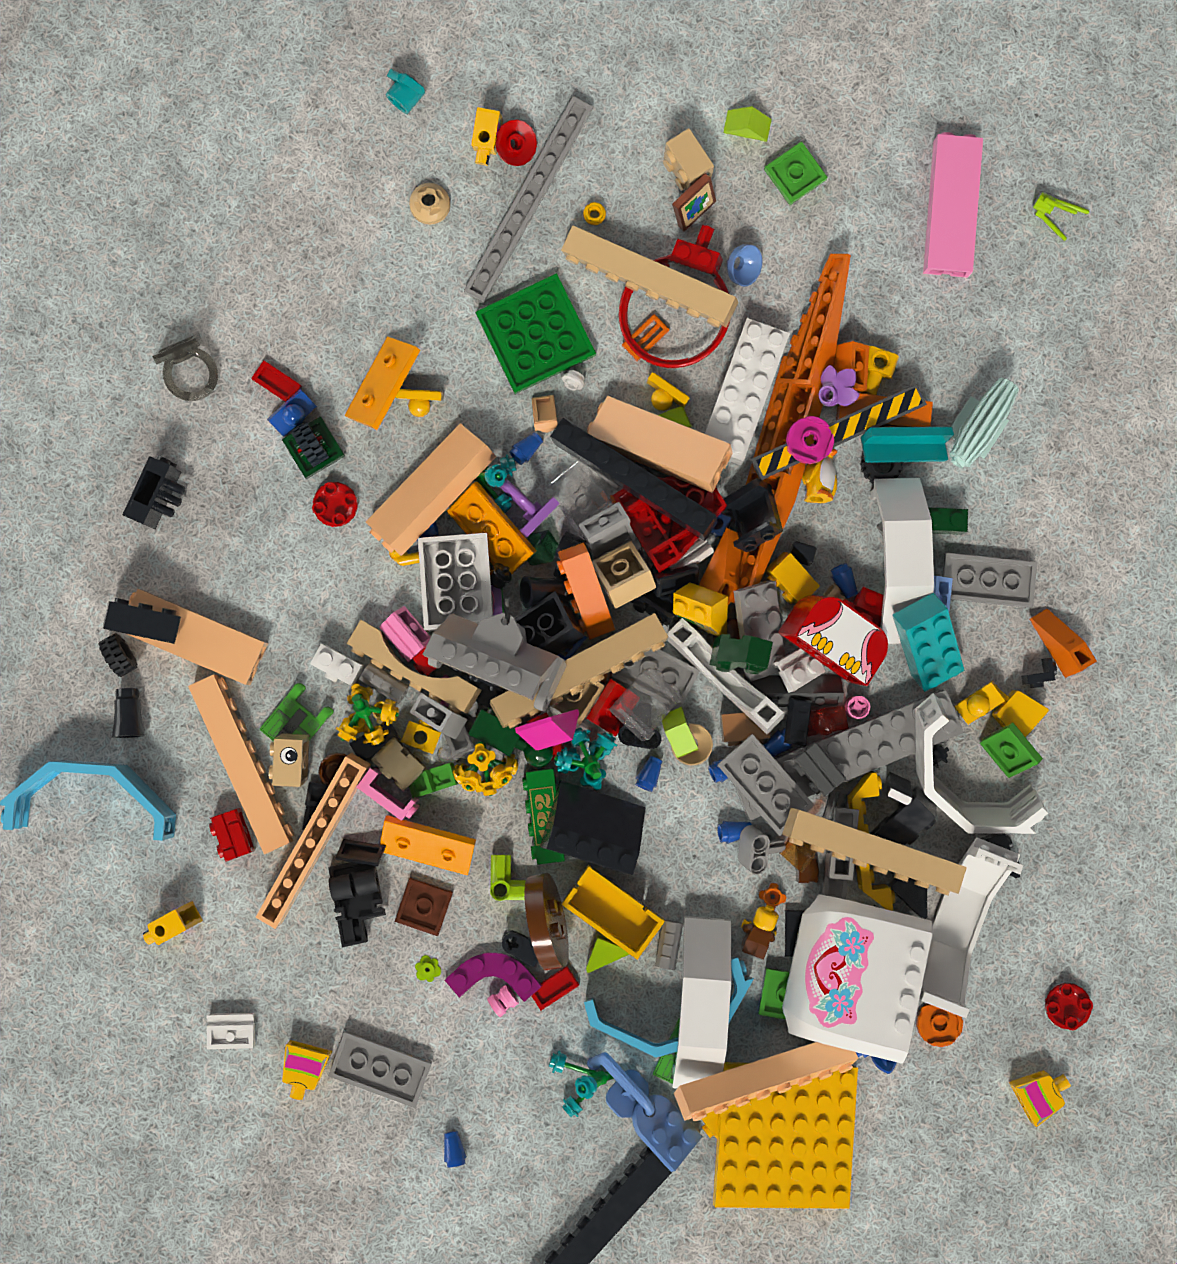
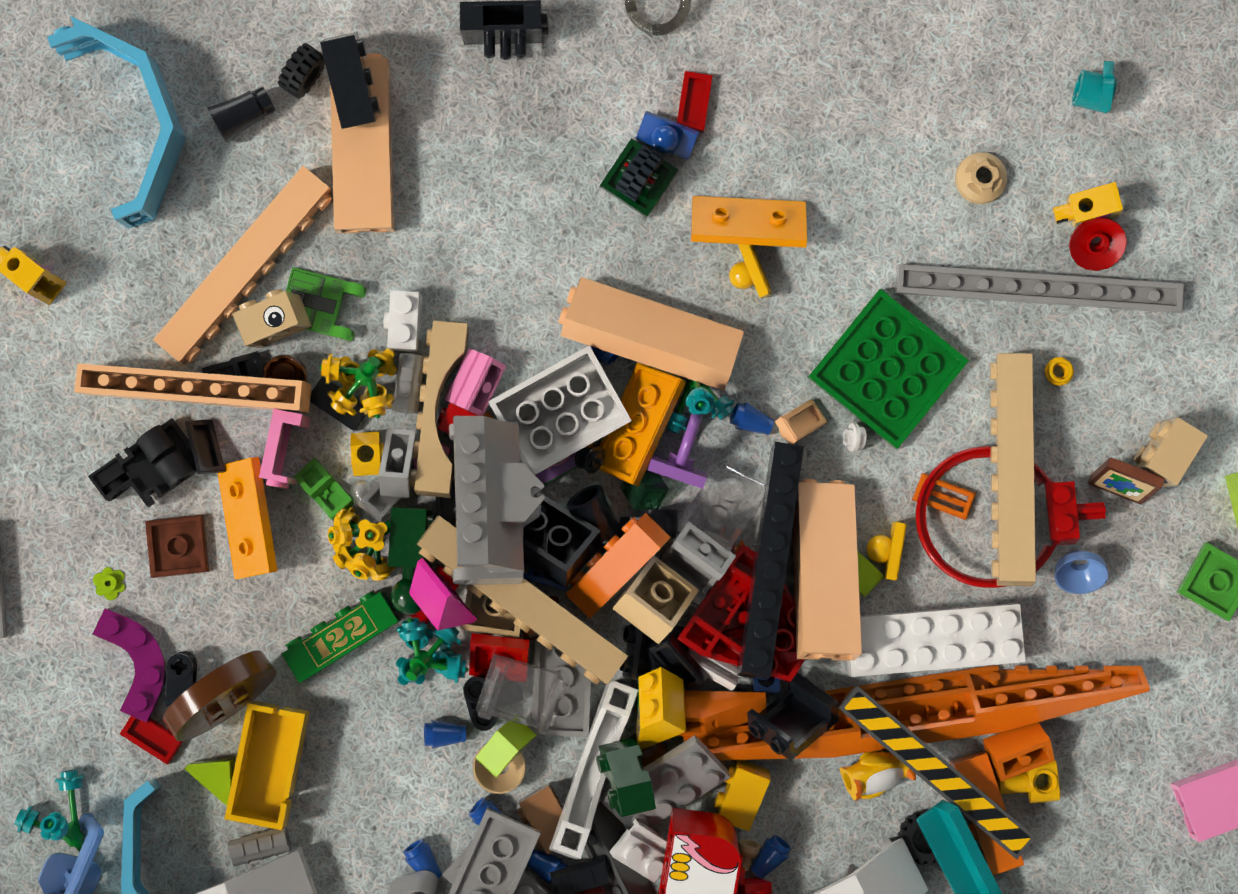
camera: 65 degrees right, 0 degrees up
(231, 834) = (159, 292): red brick -> none
(335, 504) = (586, 232): red dish -> none
(398, 763) = (324, 443): dark tan brick -> none
(405, 559) = (561, 343): yellow arm -> none
(502, 874) = (252, 617): lime piece -> none
(503, 1000) = (111, 685): bright pink wheel -> none
(594, 828) = (352, 700): black slope -> none
(803, 552) = (778, 793): black slope -> none
(821, 434) = (923, 754): dark pink plate -> none
(840, 384) = (991, 750): medium lavender plate -> none

